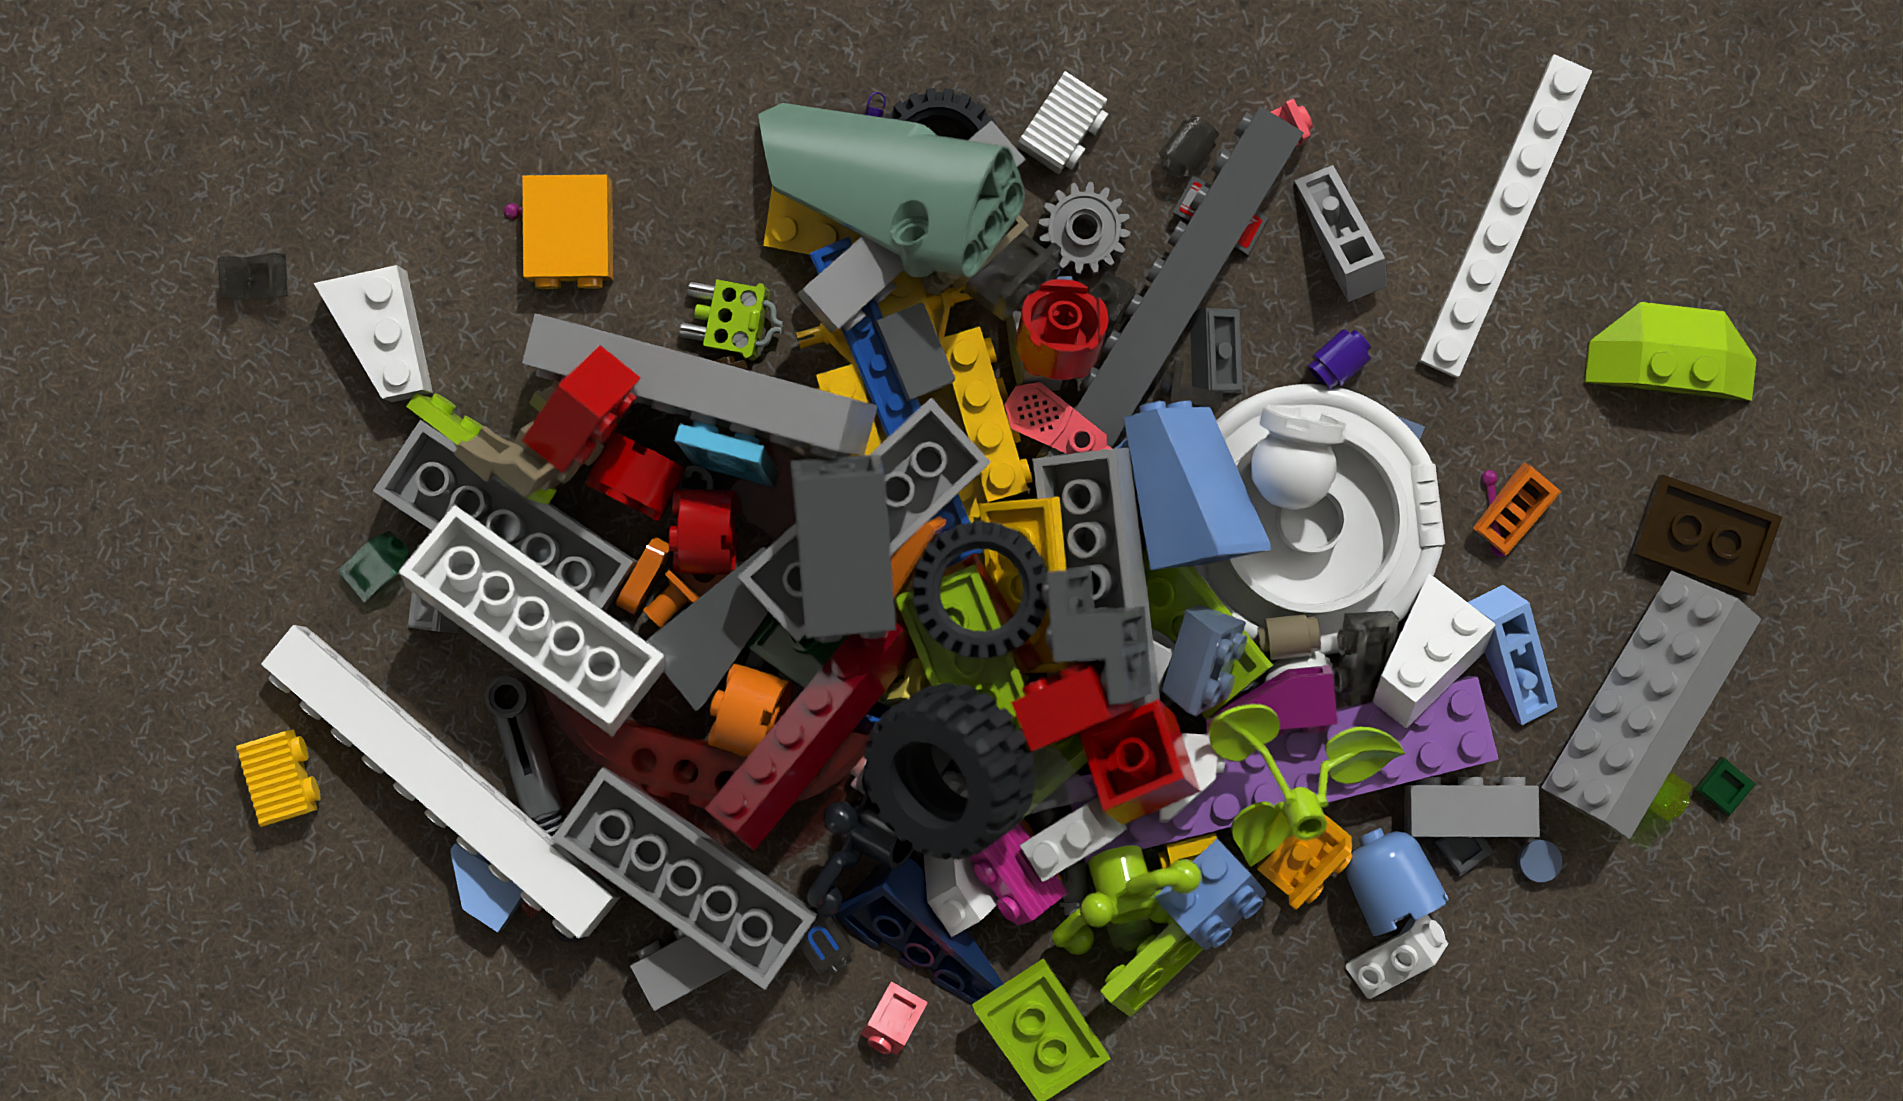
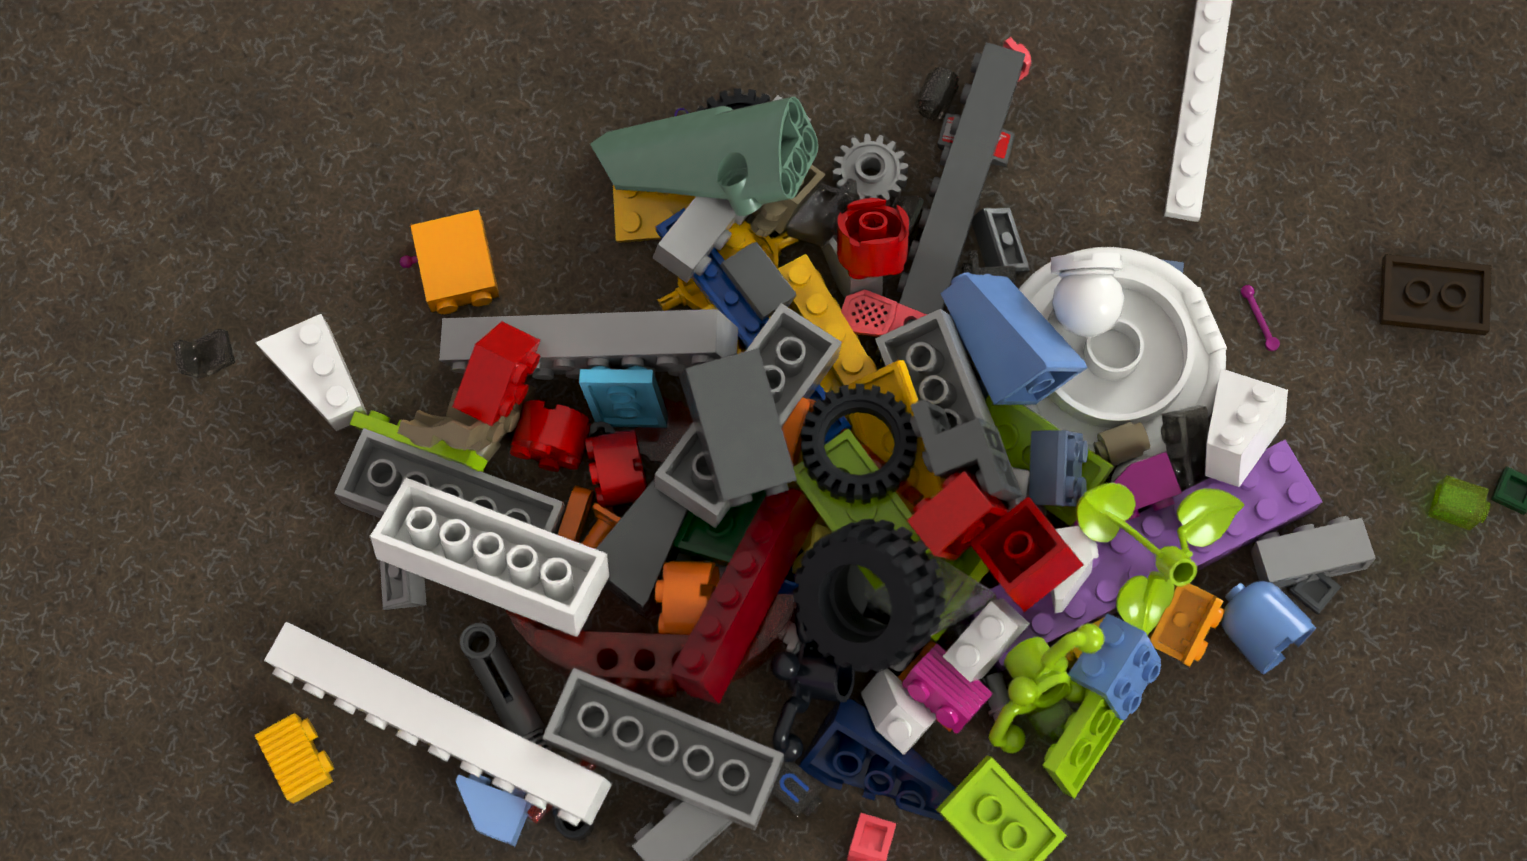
camera: 10 degrees left, 15 degrees down
(375, 565) = (346, 562): clear green bracket -> none
(747, 318) = (613, 292): lime piece -> none
(1063, 123) = (834, 96): white brick -> none
(1340, 358) = (1101, 224): dark purple brick -> none
(1342, 234) = (1079, 132): light grey slope -> none
(1399, 958) = (1286, 691): white bracket -> none
(1516, 654) = (1313, 421): light blue slope -> none
(1539, 860) = (1381, 585): sand blue tile -> none
(1547, 495) = (1288, 283): orange slope -> none
(1651, 703) = (1433, 430): light grey brick -> none
(1673, 352) = (1364, 163): lime wedge -> none

